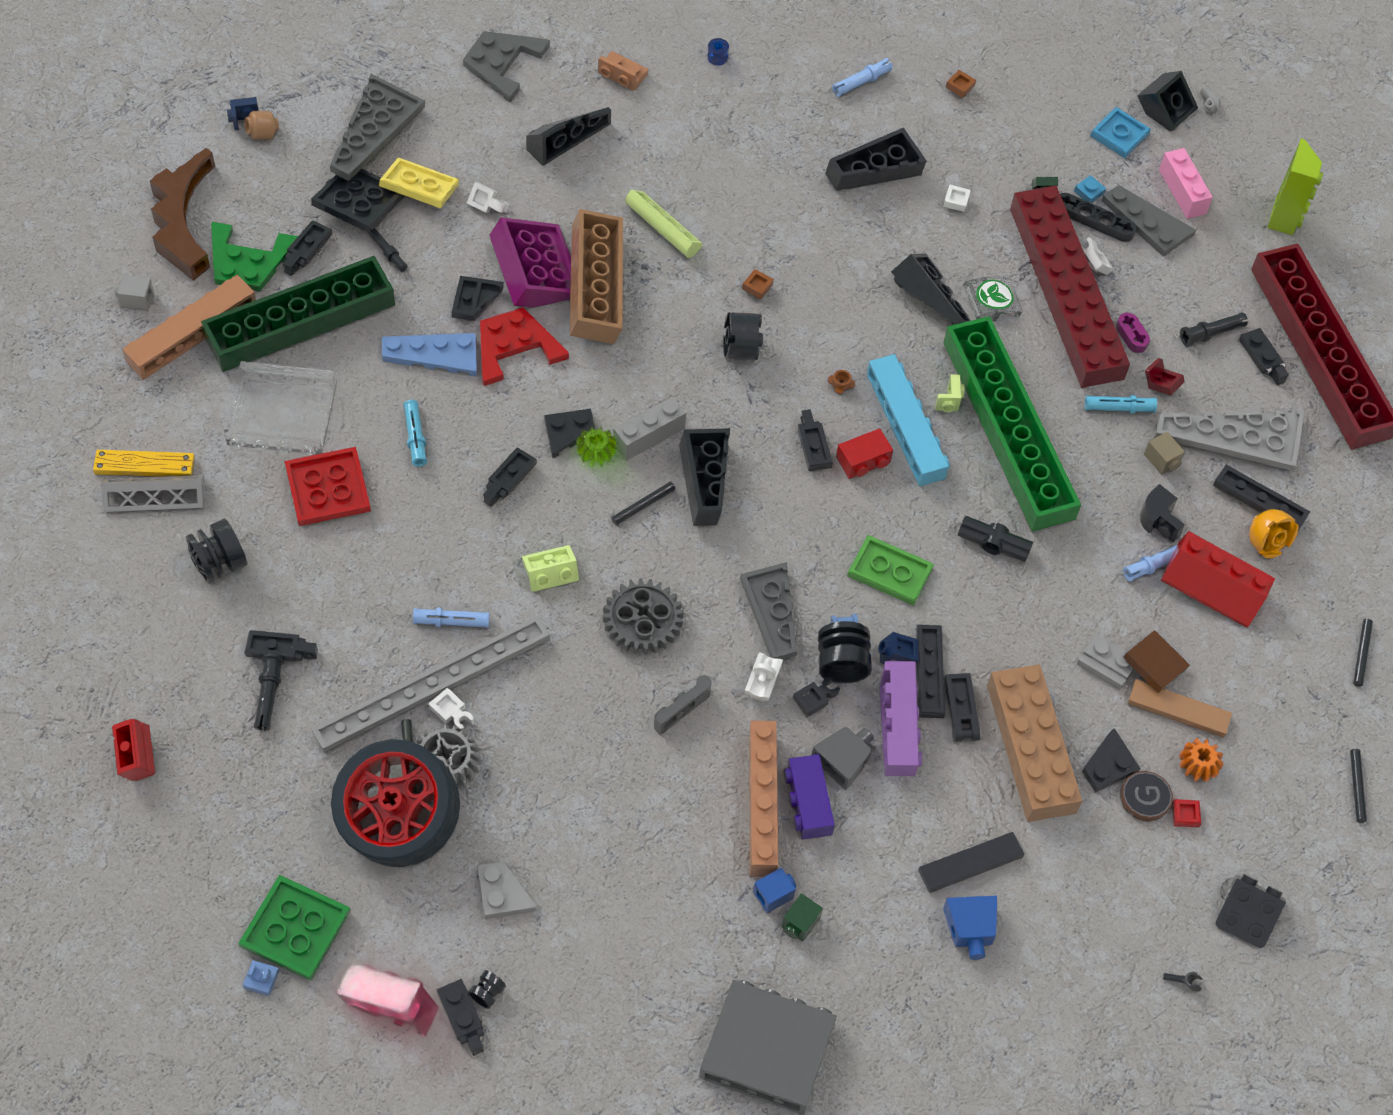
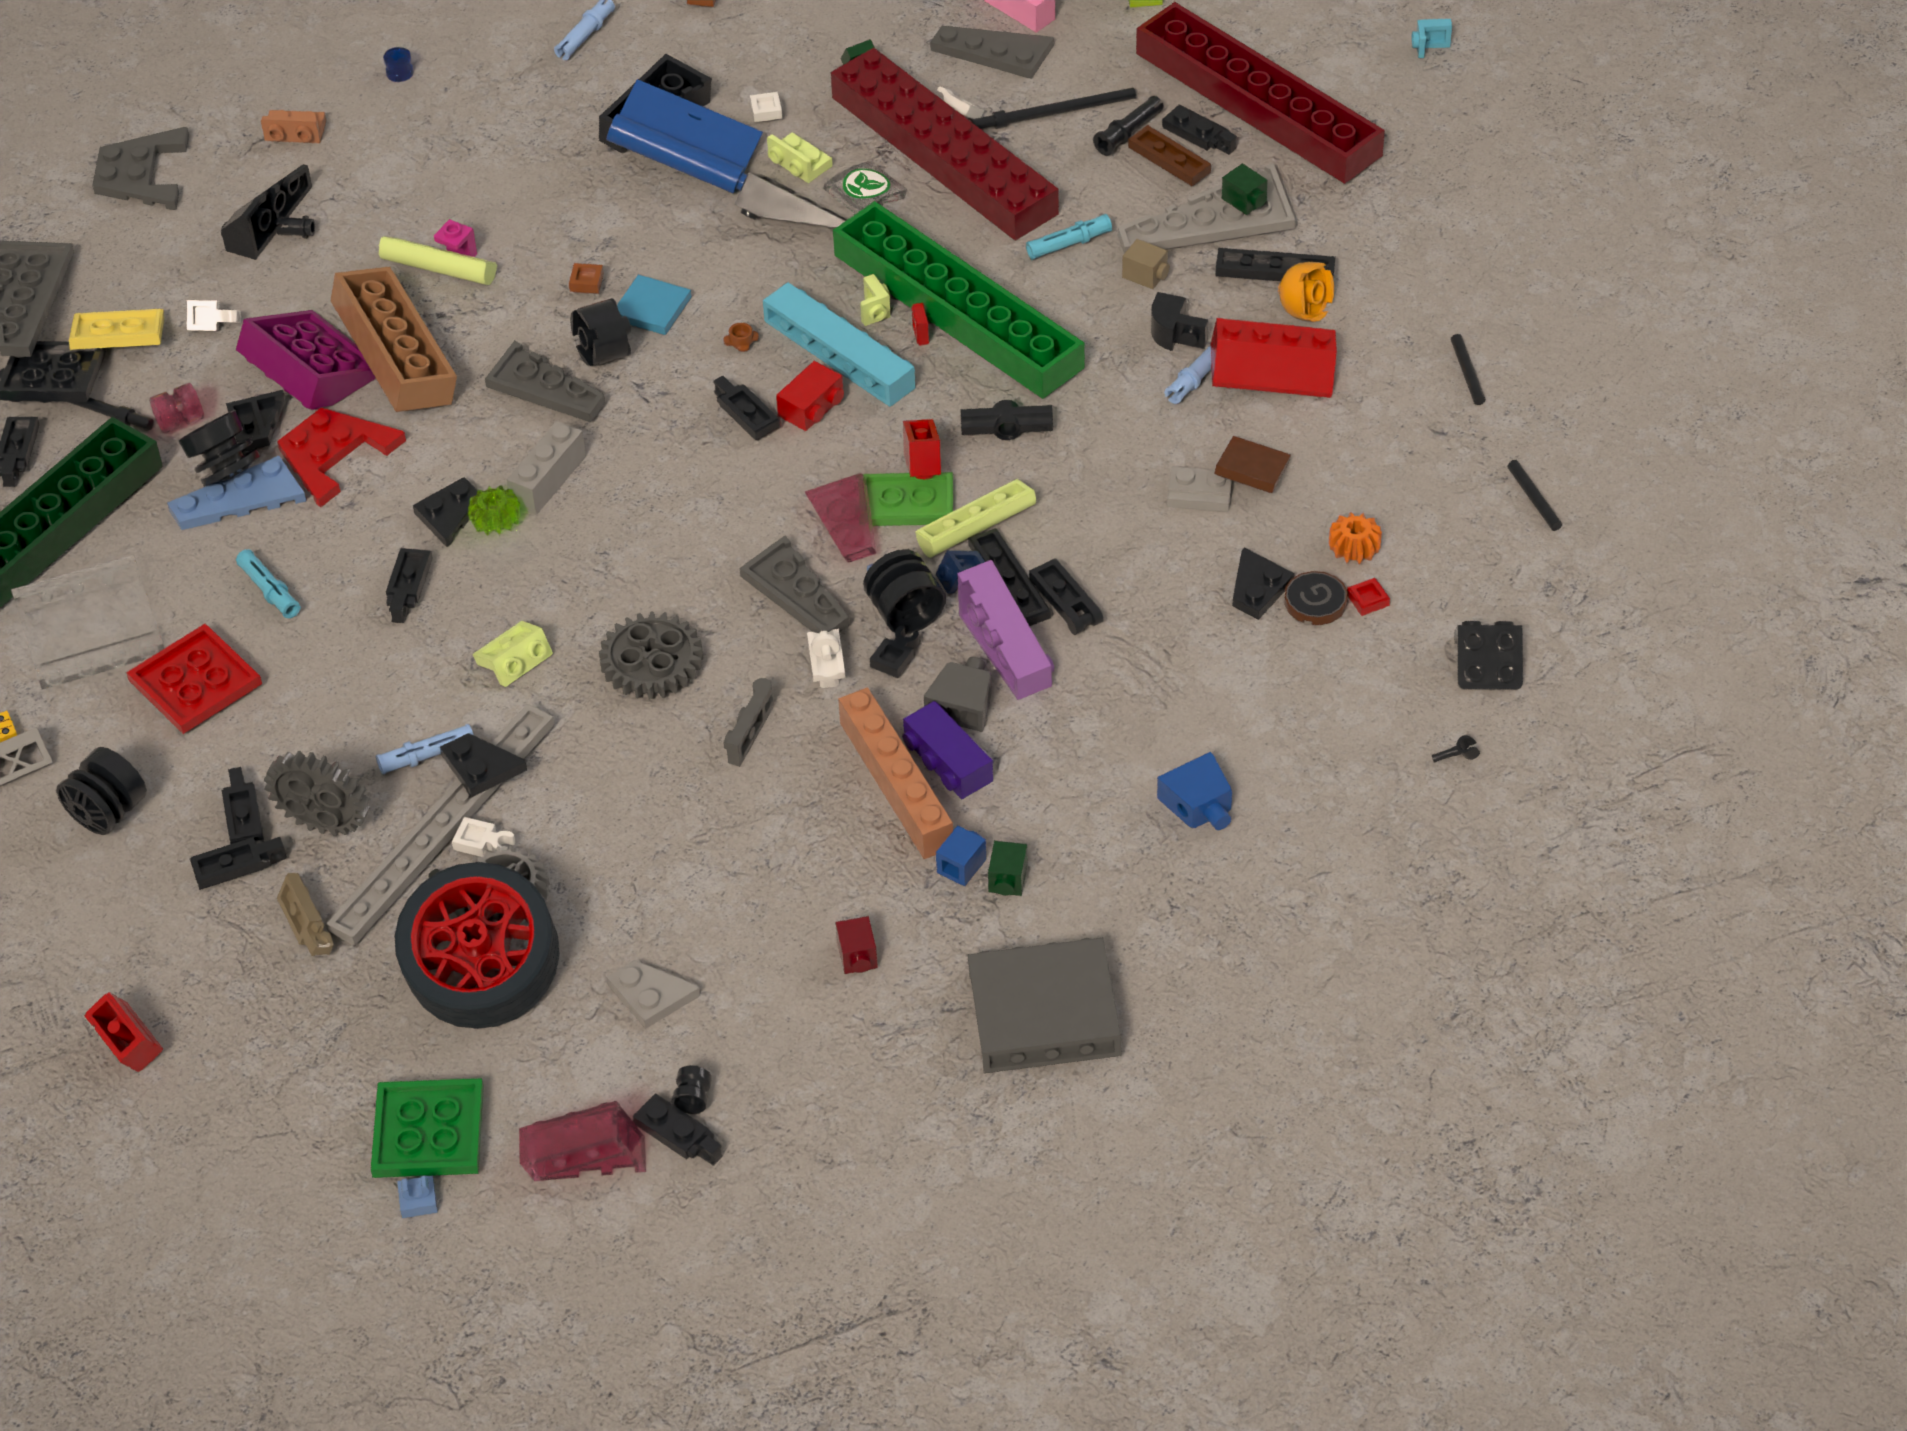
camera: 20 degrees left, 10 degrees down
(269, 680) = (245, 899): black pin -> none
(299, 715) = (303, 916): none -> dark tan hinge
(304, 607) = (241, 808): none -> black hinge
(351, 626) = (317, 793): none -> dark grey gear
(417, 264) = (167, 413): none -> clear pink wheel
(433, 318) = (219, 448): none -> black wheel
(478, 650) = (480, 763): none -> black wing
(582, 153) = (296, 226): none -> black pin
(643, 503) = (582, 547): black bar -> none
(661, 928) = (856, 945): none -> dark red brick
(678, 350) = (535, 381): none -> dark grey wing
(682, 213) = (457, 238): none -> dark pink bracket
(704, 470) = (638, 484): black wedge -> none
(793, 325) = (653, 304): none -> dark azure tile
(839, 565) = (846, 515): none -> clear pink wing
(883, 200) = (685, 136): none -> blue door
(918, 537) = (921, 448): none -> red brick
(930, 610) = (975, 517): none -> yellowish green brick
(959, 249) = (798, 156): none -> yellowish green bracket
(971, 862) = (1162, 740): black tile -> none
(973, 429) = (920, 324): none -> red tile
(1034, 743) = (1165, 595): medium nougat brick -> none
(1090, 189) = (911, 43): dark azure plate -> none
(1097, 214) = (966, 66): black beam -> none
(1121, 282) = (1001, 119): none -> black bar
(1130, 333) = (1043, 162): magenta beam -> none
(1162, 379) = (1101, 195): dark red bracket -> none
(1180, 708) = (1303, 501): medium nougat tile -> none
(1230, 368) = (1169, 155): none -> reddish brown plate
(1269, 425) = (1244, 189): none -> dark green brick

